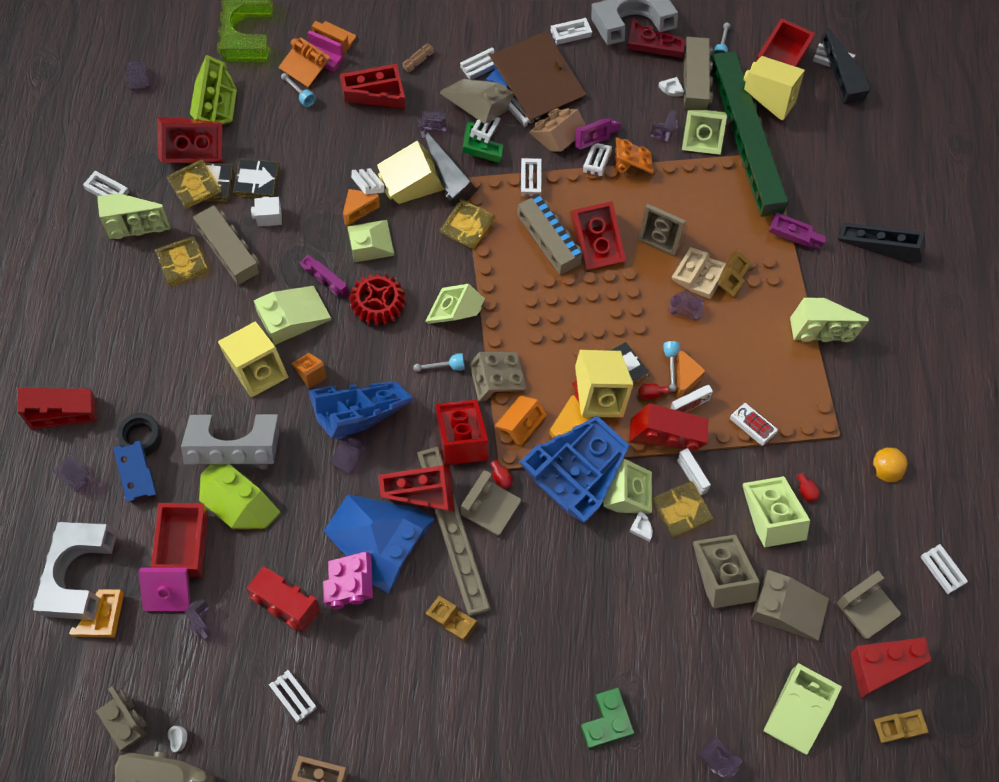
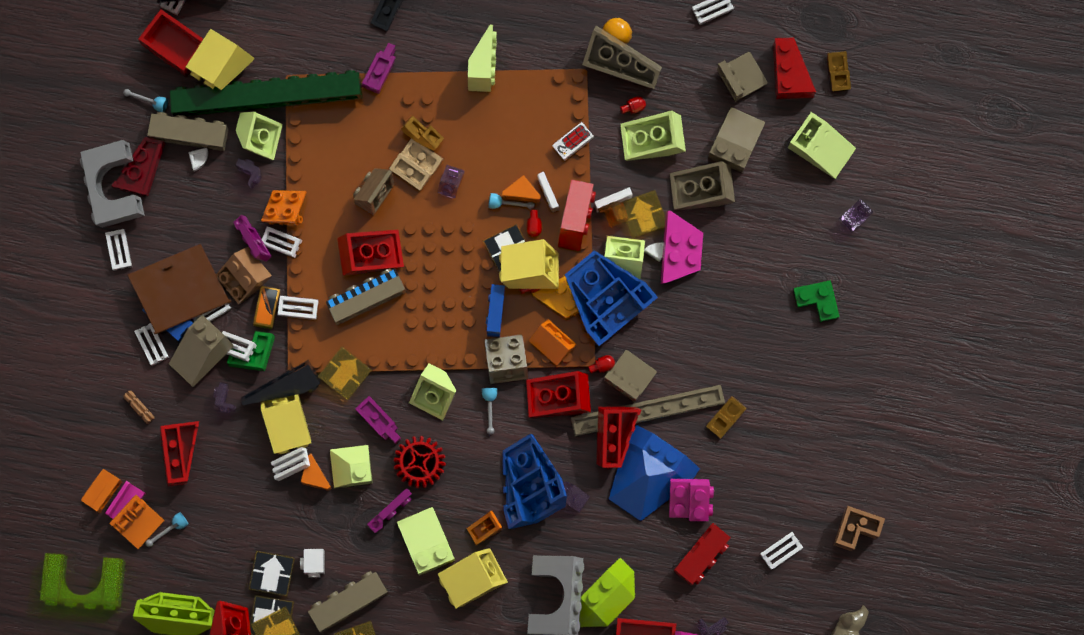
camera: 85 degrees left, 15 degrees up
(420, 259) = (378, 419): none -> magenta hinge
(529, 150) = (266, 307): none -> slope
(548, 356) = (495, 313): none -> blue piece
(647, 550) = (681, 248): none -> dark pink wing
(679, 475) = (615, 213): none -> clear orange panel
(858, 464) = (620, 60): none -> dark tan wedge

